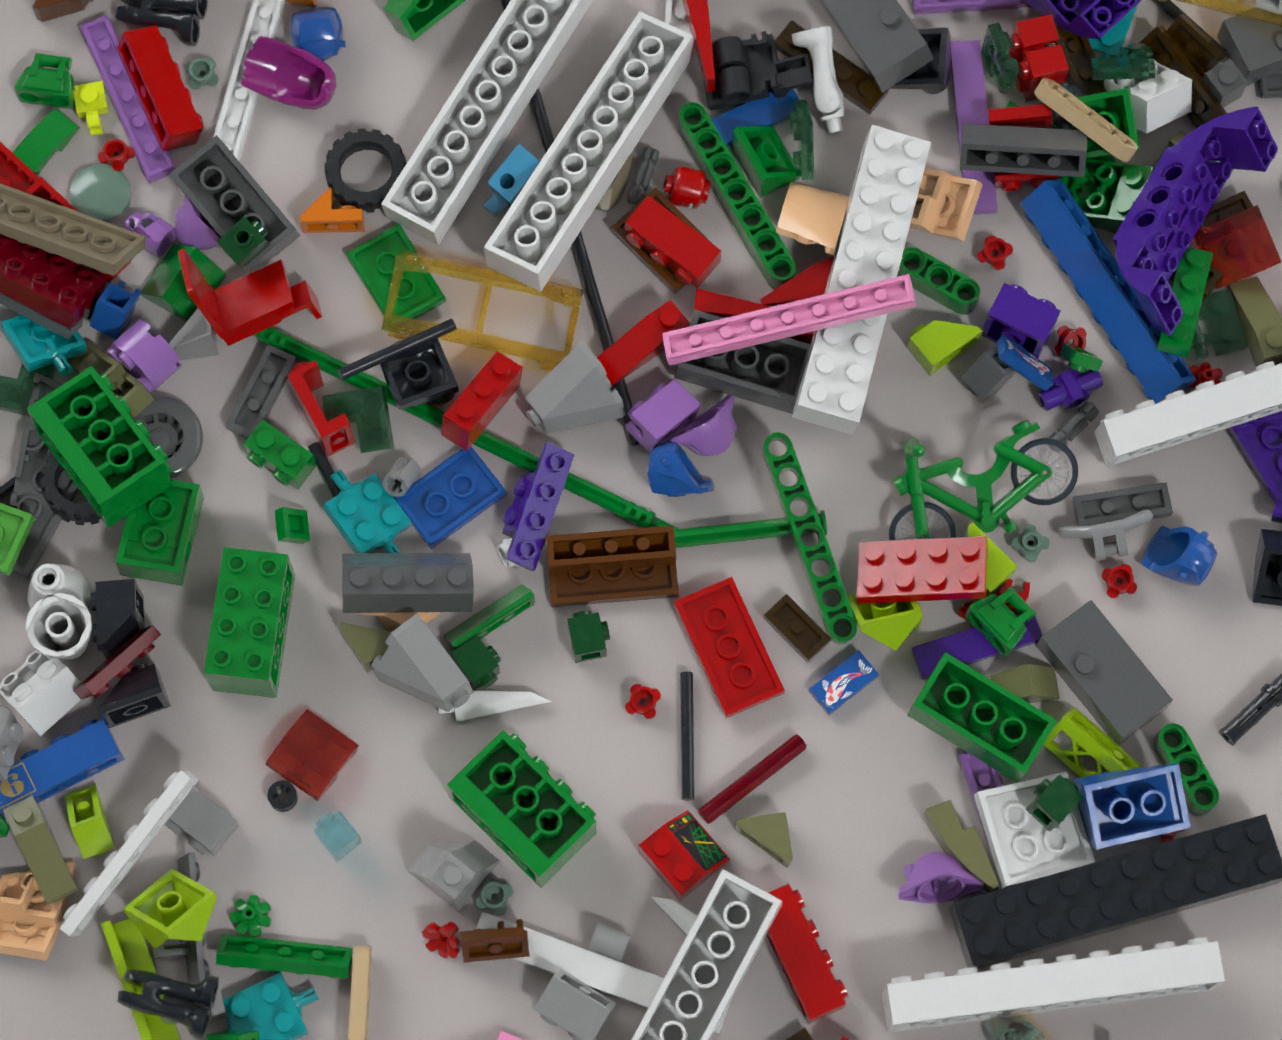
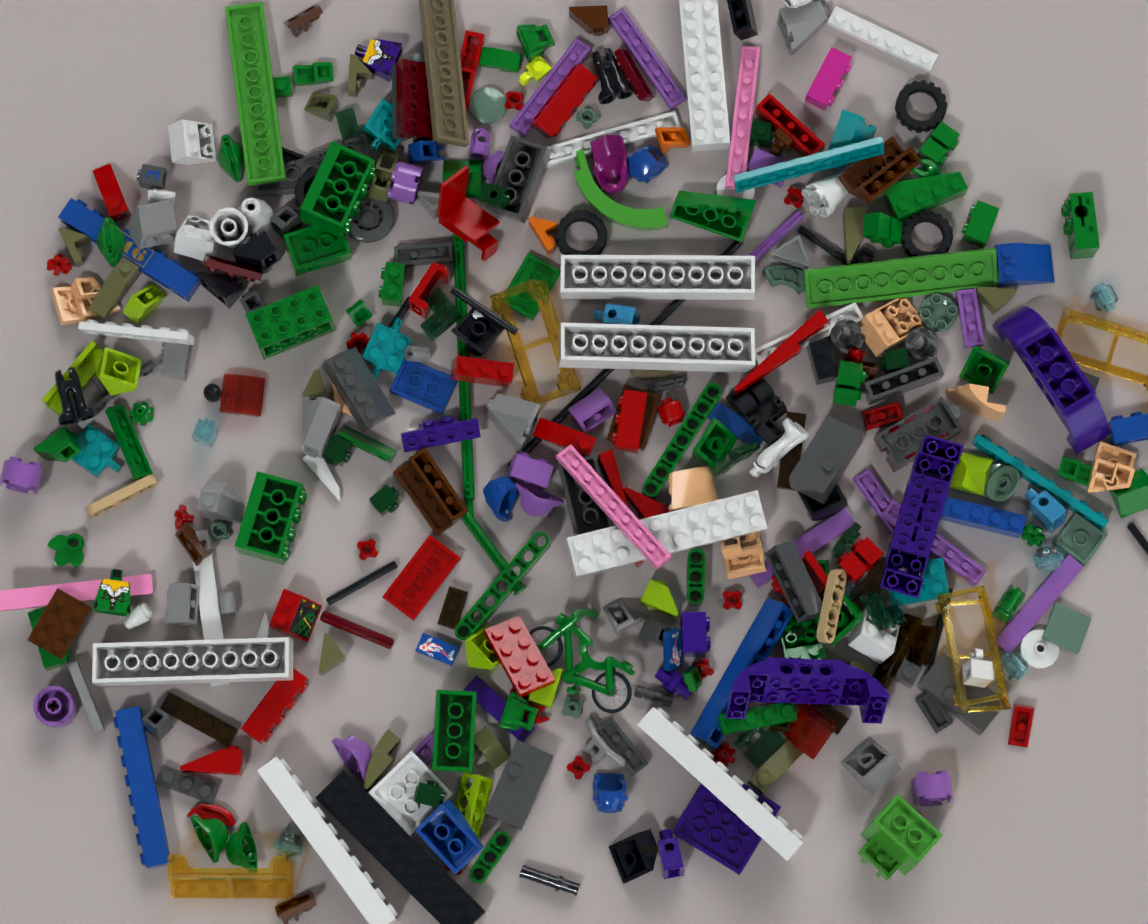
camera: 60 degrees right, 5 degrees up
(94, 554) = (285, 220): none -> dark grey brick
(178, 661) = (251, 298): none -> dark grey brick
(331, 550) = (358, 341): none -> red plant
(348, 112) = (624, 216): none -> bright green arch
(624, 286) = (592, 410): none -> medium lavender brick
(938, 408) = (623, 616): none -> light grey slope

